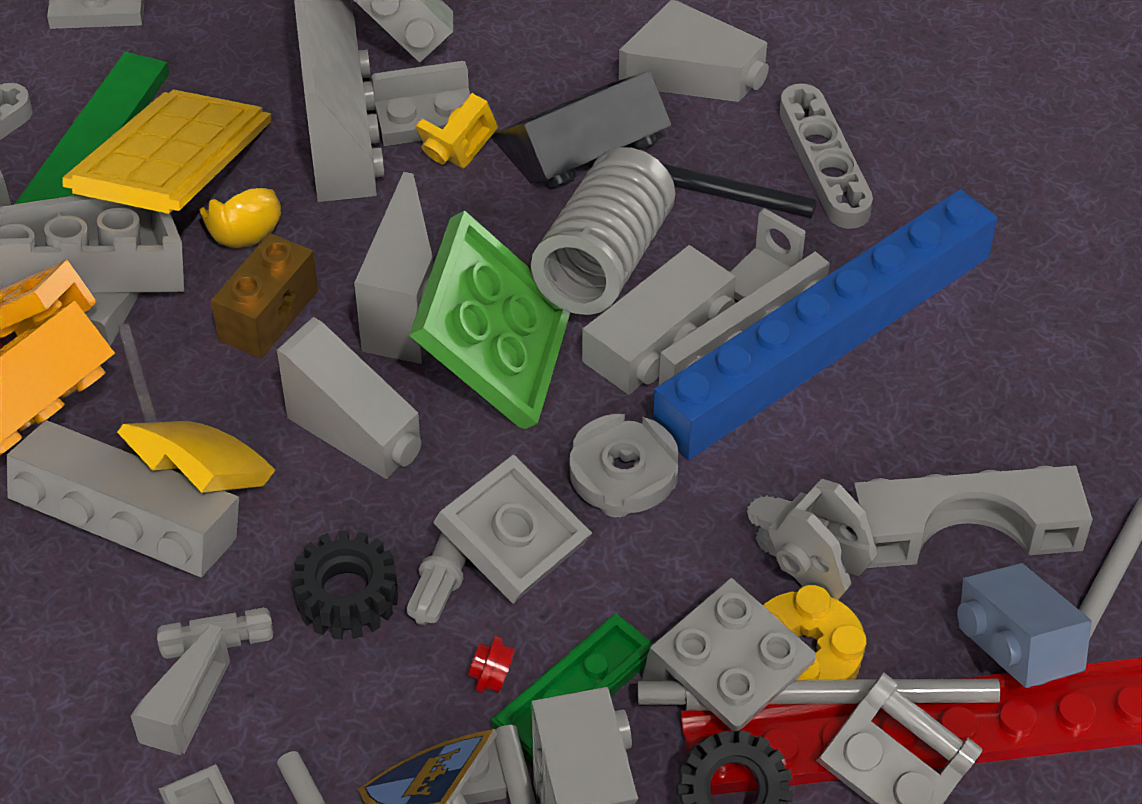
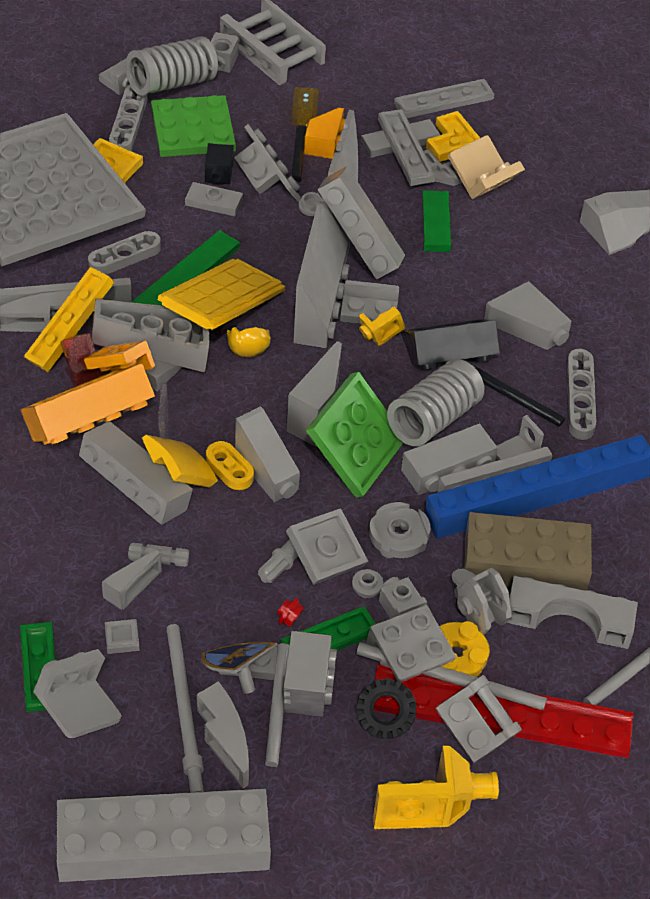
camera: 15 degrees right, 0 degrees up
(265, 295) = (245, 386): pearl gold brick -> none
(291, 437) = (231, 467): none -> yellow plate
(352, 610) = (231, 563): black tyre -> none
(605, 584) = (367, 590): none -> light grey plate
(675, 581) = (400, 597): none -> light grey brick
(856, 430) = (529, 548): none -> dark tan brick
(1024, 624) = (571, 675): sand blue brick -> none

